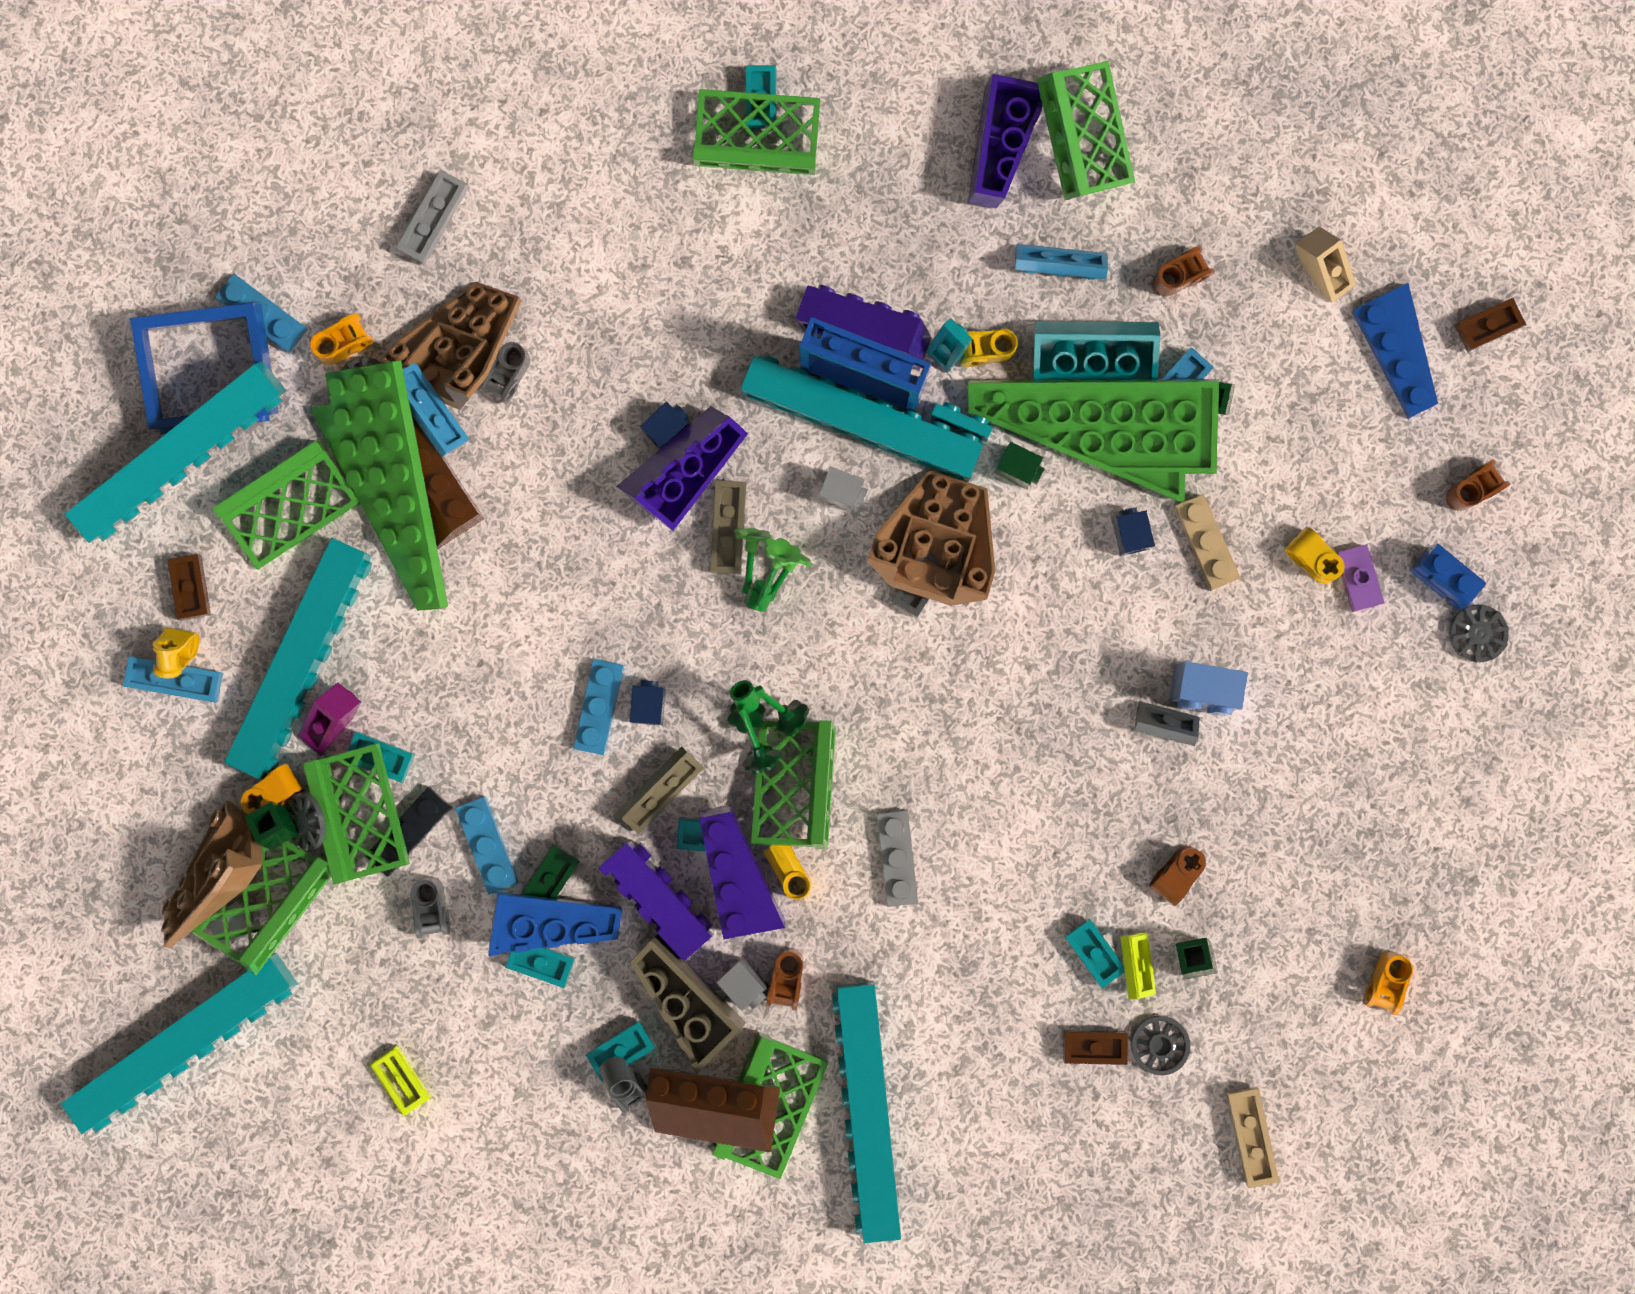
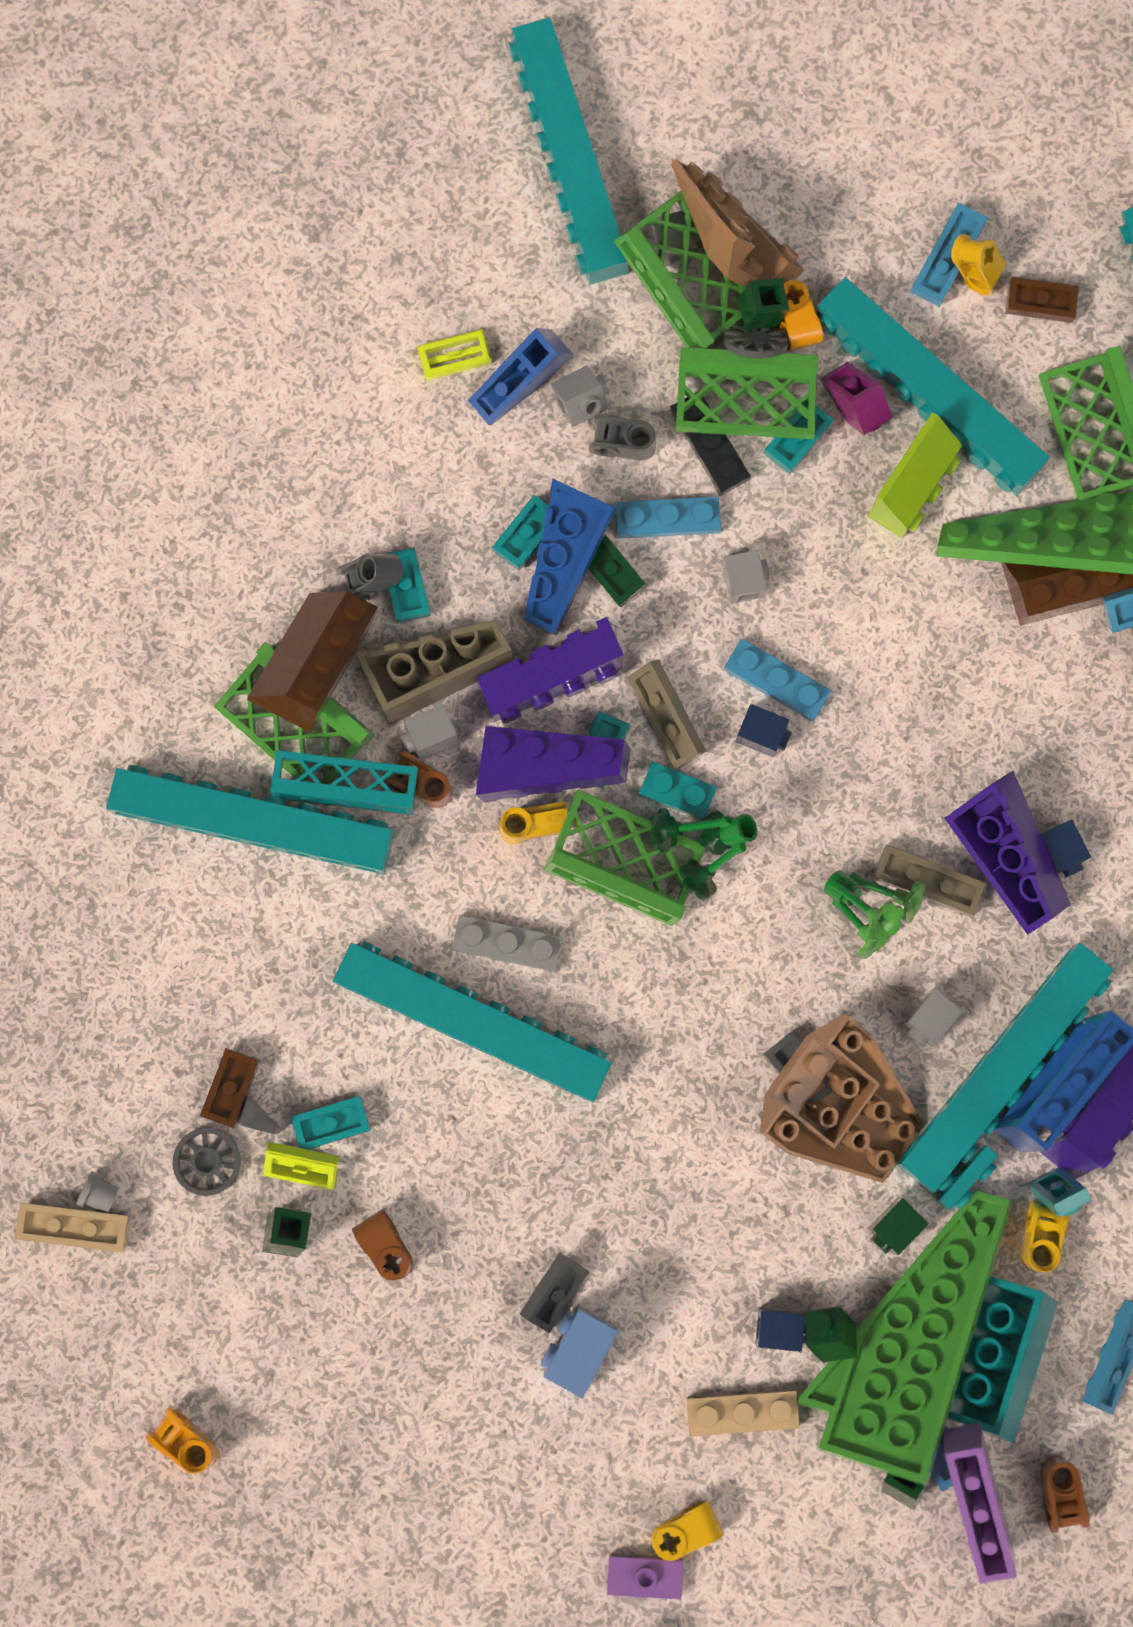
camera: 105 degrees right, 5 degrees down
(385, 643) = (917, 478): none -> lime slope
(401, 1016) = (520, 374): none -> blue slope
(403, 957) = (580, 395): none -> light grey brick
(517, 763) = (745, 575): none -> light grey brick
(721, 759) = (677, 790): none -> teal plate
(822, 1040) = (341, 795): none -> teal fence
(973, 865) = (473, 1022): none -> teal brick
(1113, 1014) = (256, 1118): none -> flat silver slope
(1124, 491) = (831, 1334): none -> dark green brick
(1215, 334) = (979, 1503): none -> medium lavender brick
(1218, 1126) = (97, 1193): none -> light grey piece

